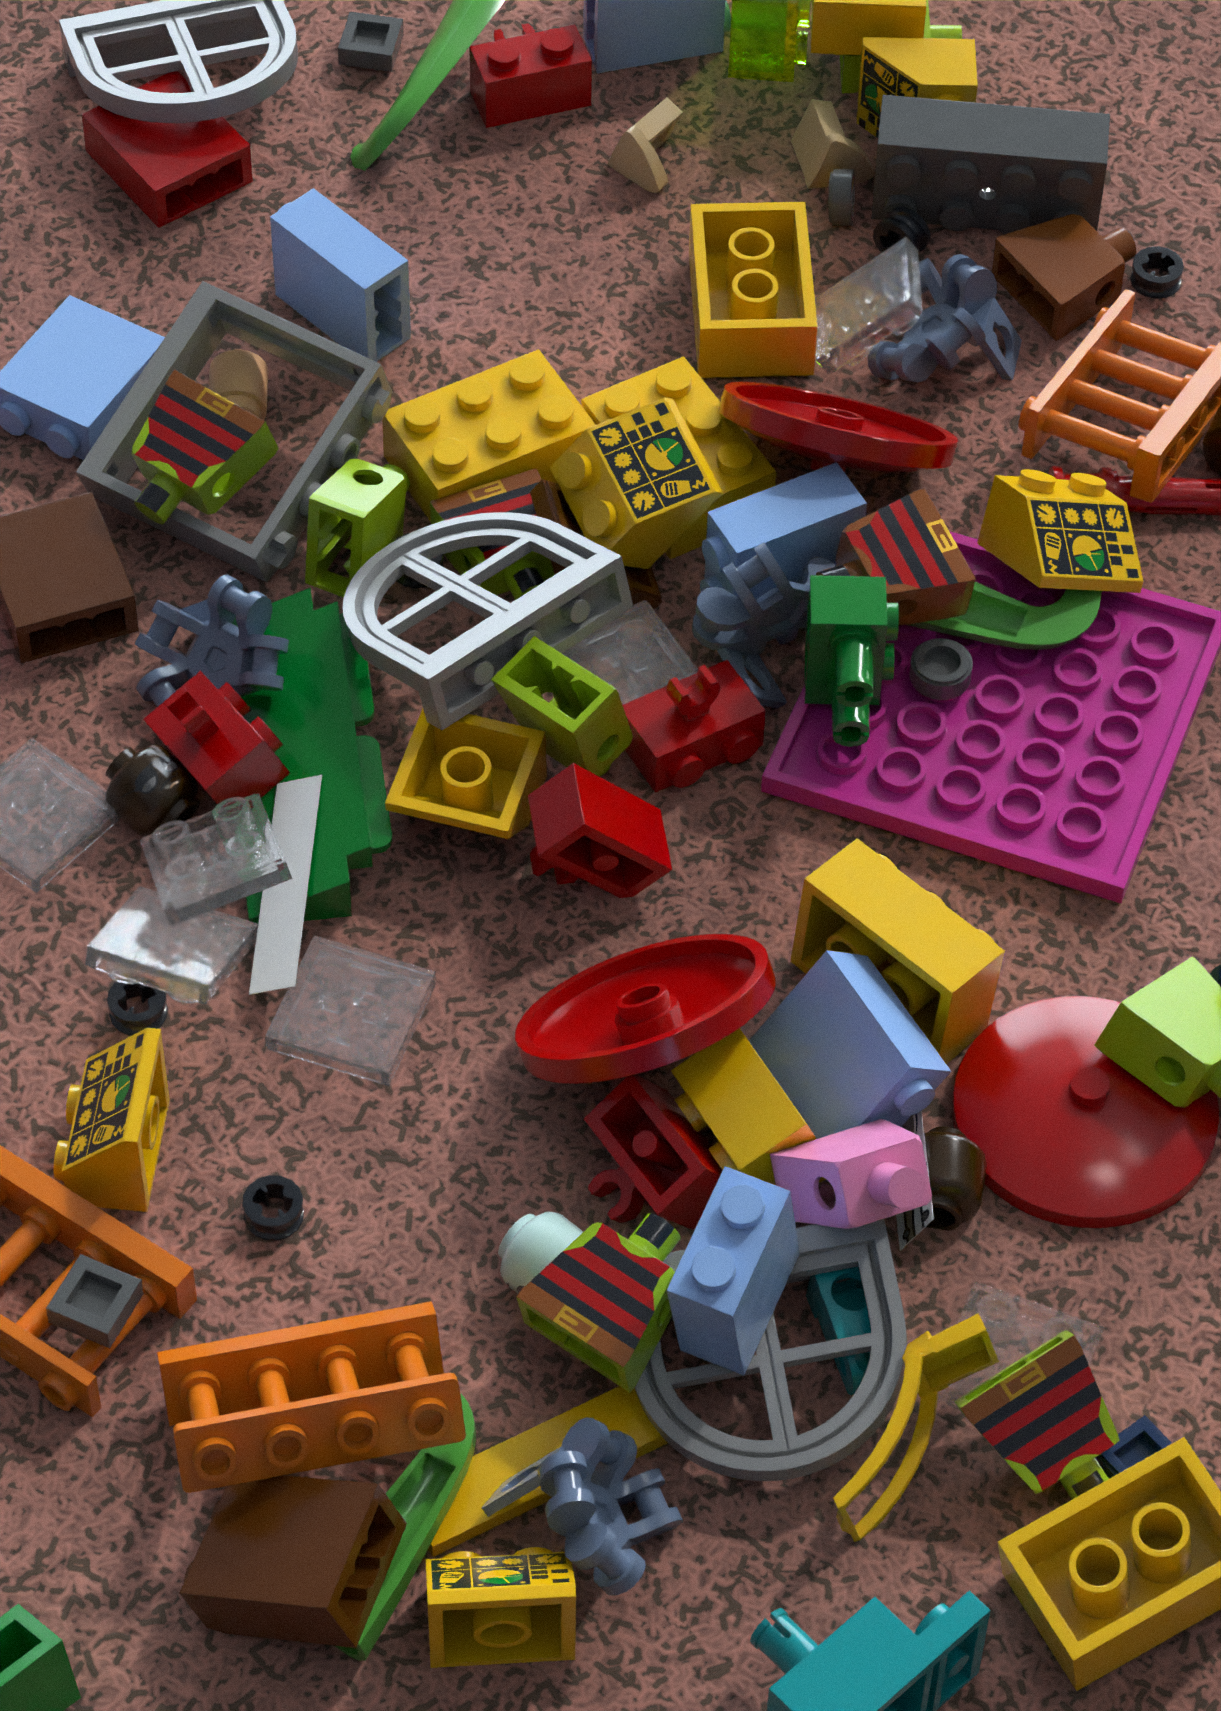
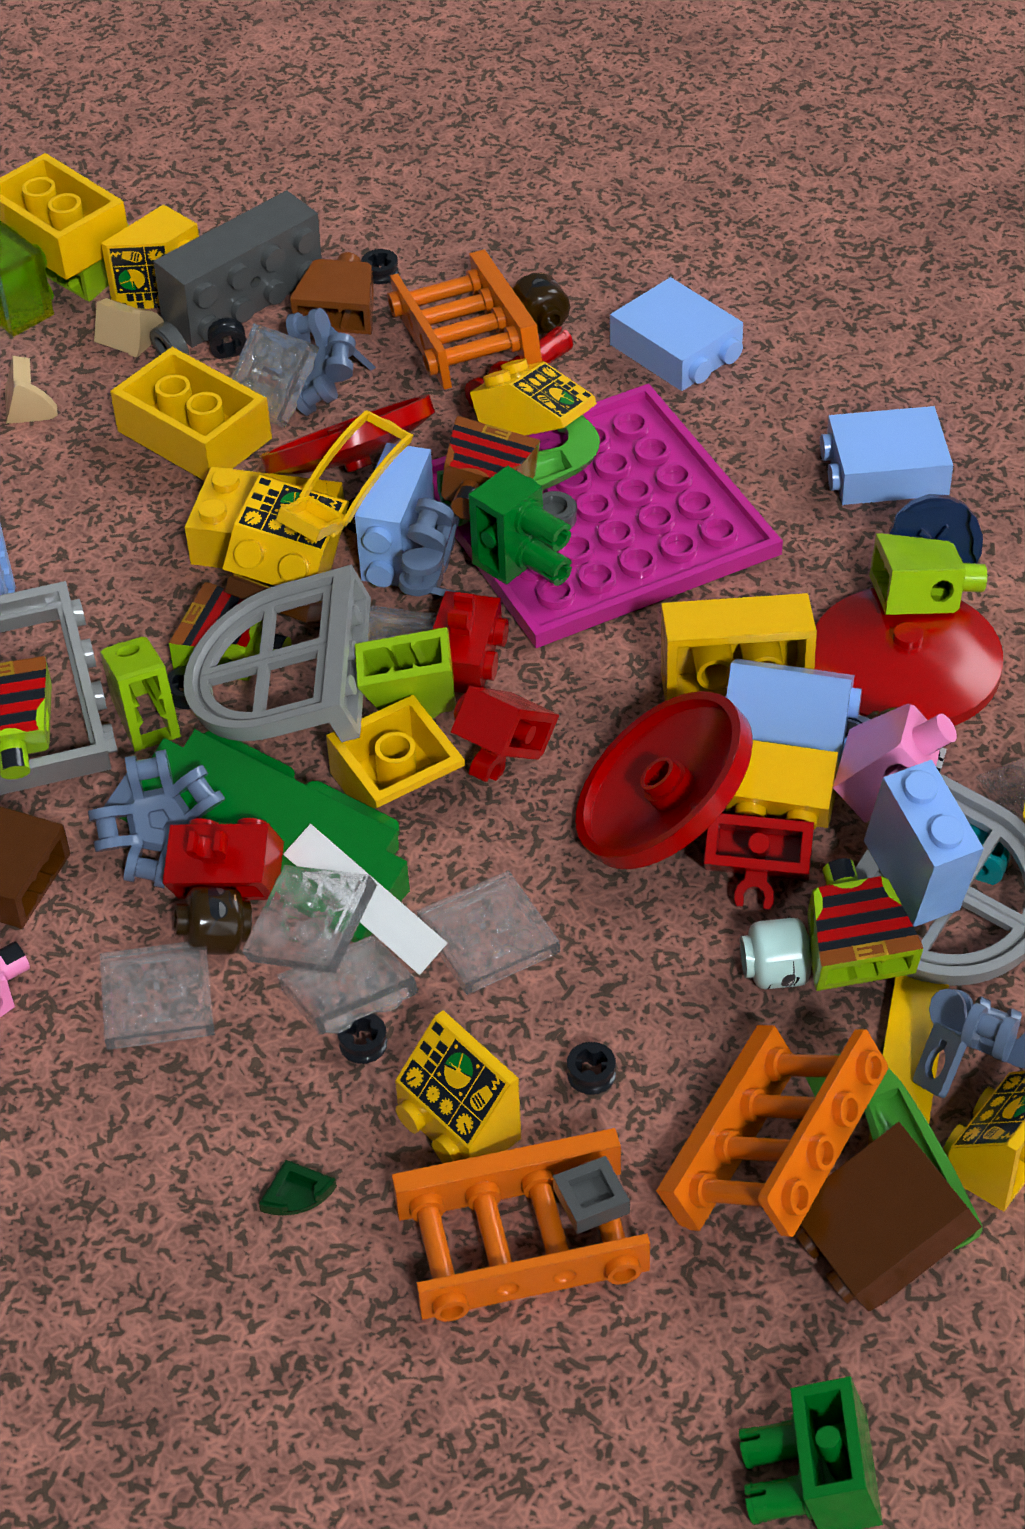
camera: 45 degrees left, 5 degrees down
(484, 429) = (148, 586): yellow brick -> none
(658, 478) = (317, 519): none -> yellow piece

